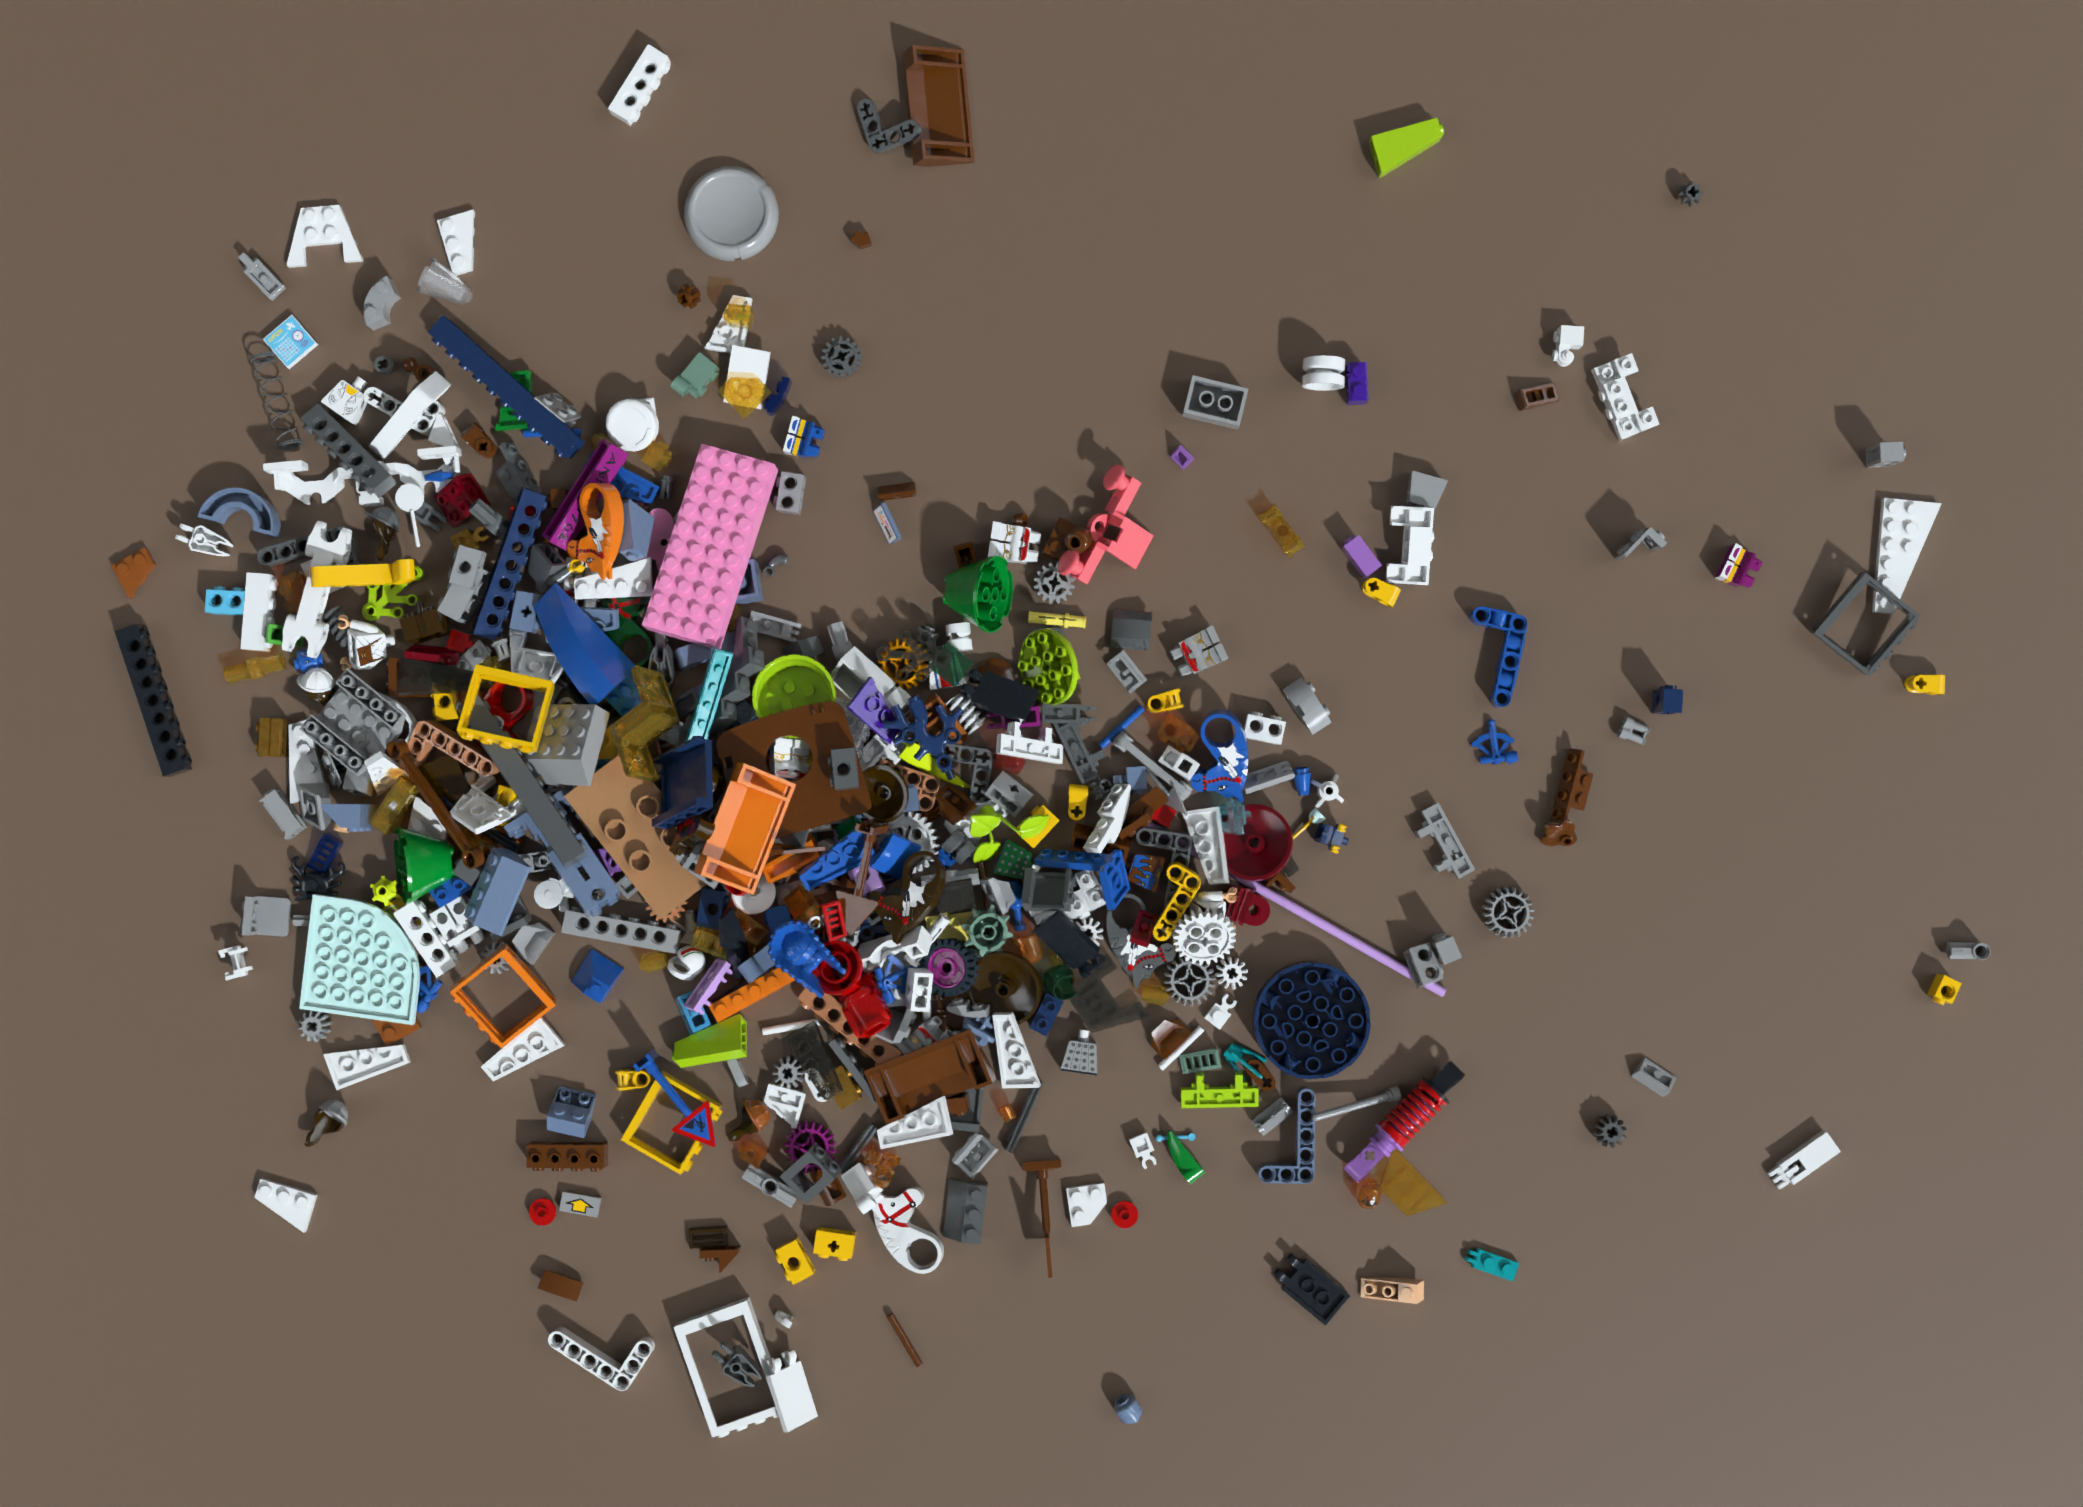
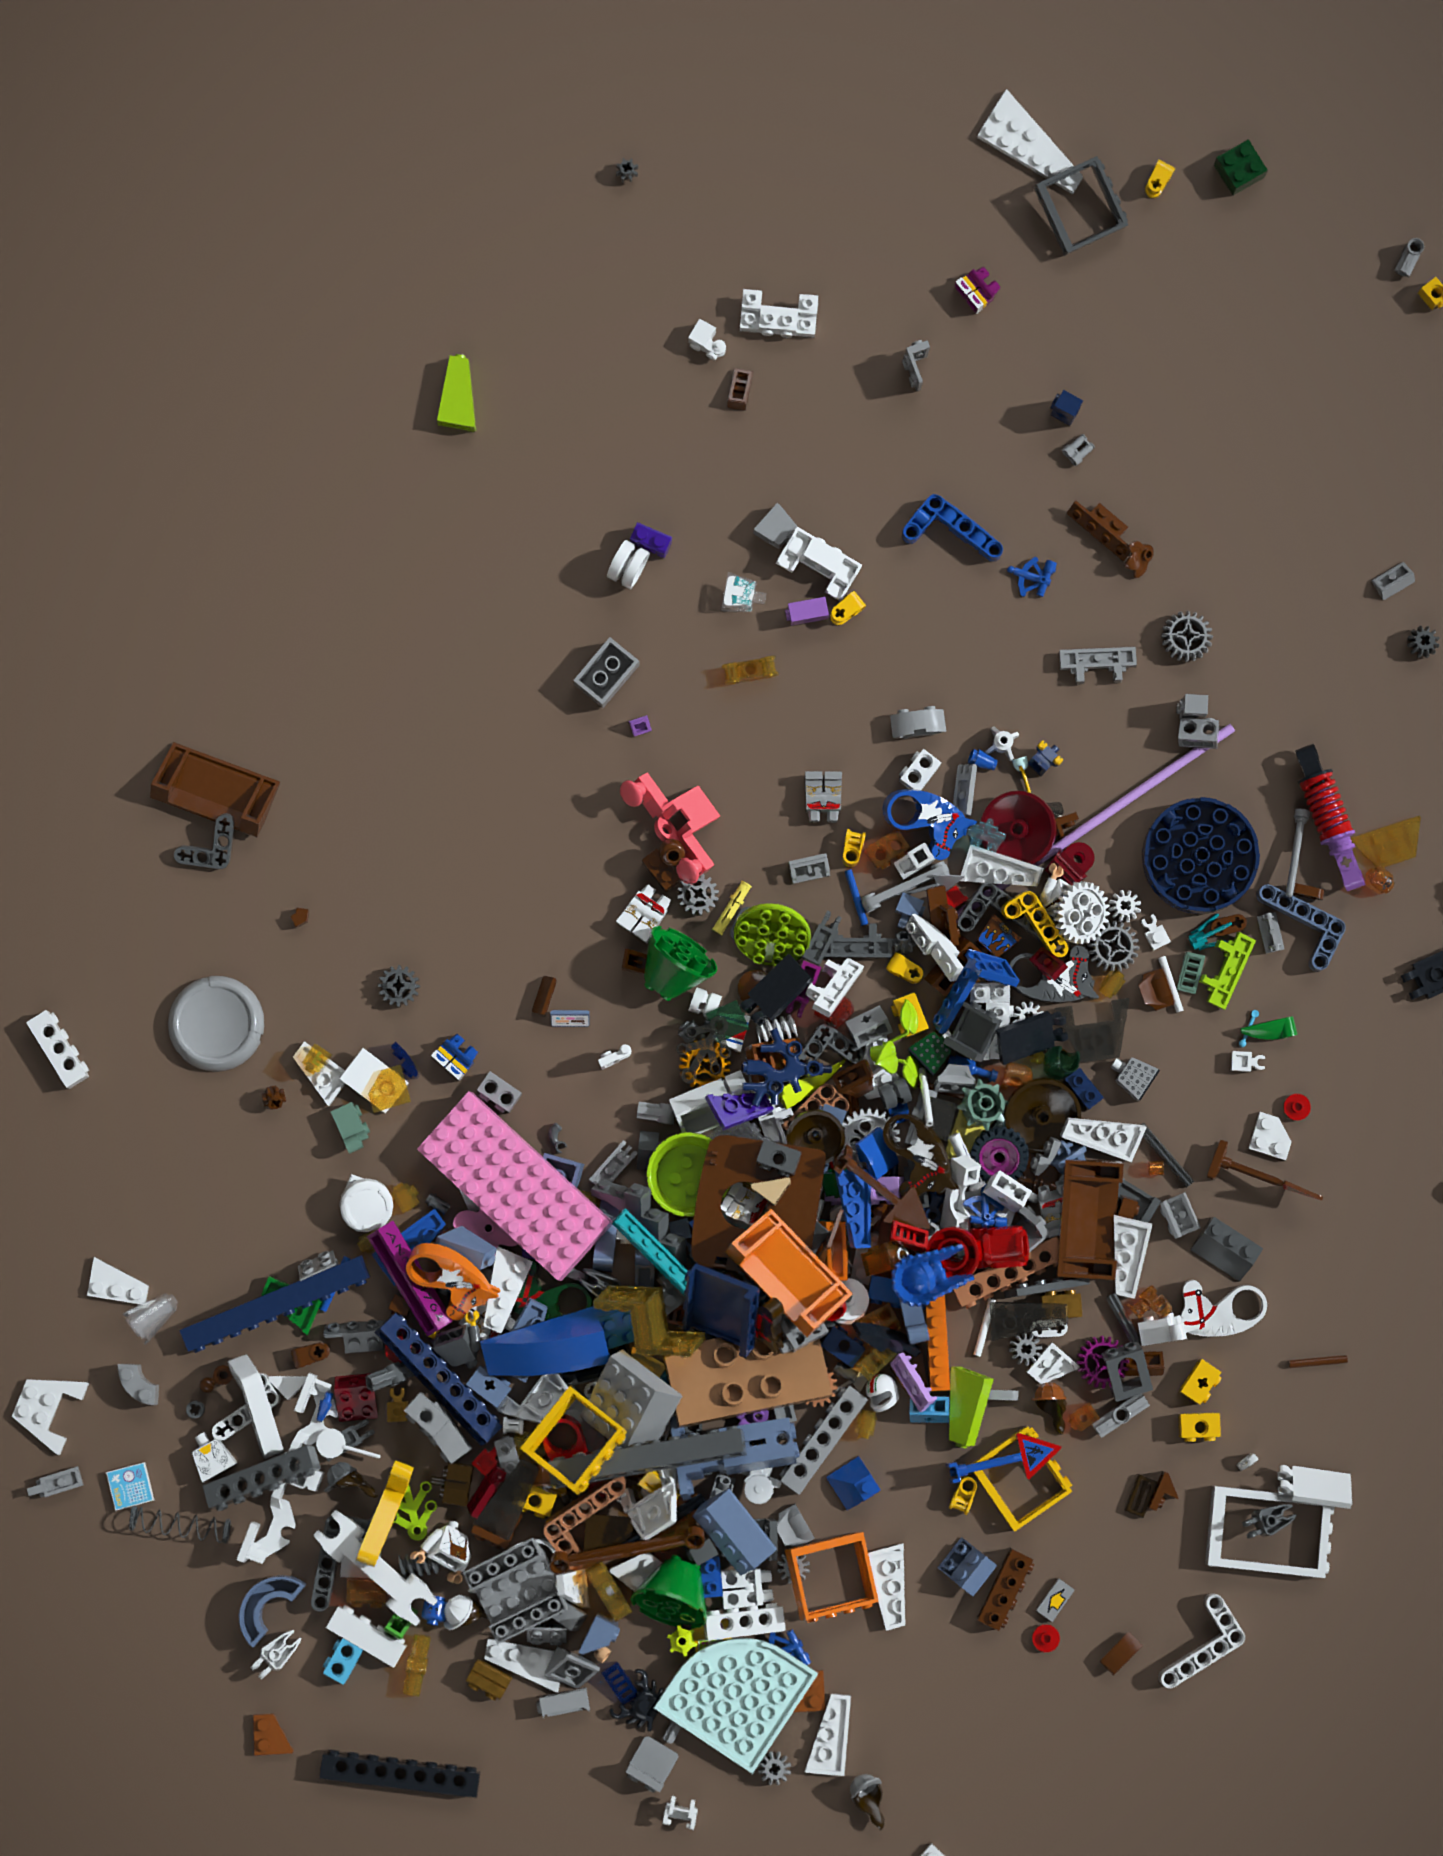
camera: 70 degrees left, 5 degrees down
(812, 777) = (772, 1190): none -> tan slope
(867, 576) = (609, 1059): none -> white plate
(968, 875) = (925, 1097): none -> white piece
(1020, 519) = (625, 896): reddish brown hinge -> none
(1131, 630) = (773, 846): dark grey slope -> none
(1326, 1134) = (1308, 892): none -> reddish brown beam
(1347, 489) = (741, 594): none -> torso
(1885, 454) = (940, 116): light grey brick -> none
(1975, 754) = (1240, 167): none -> dark green brick

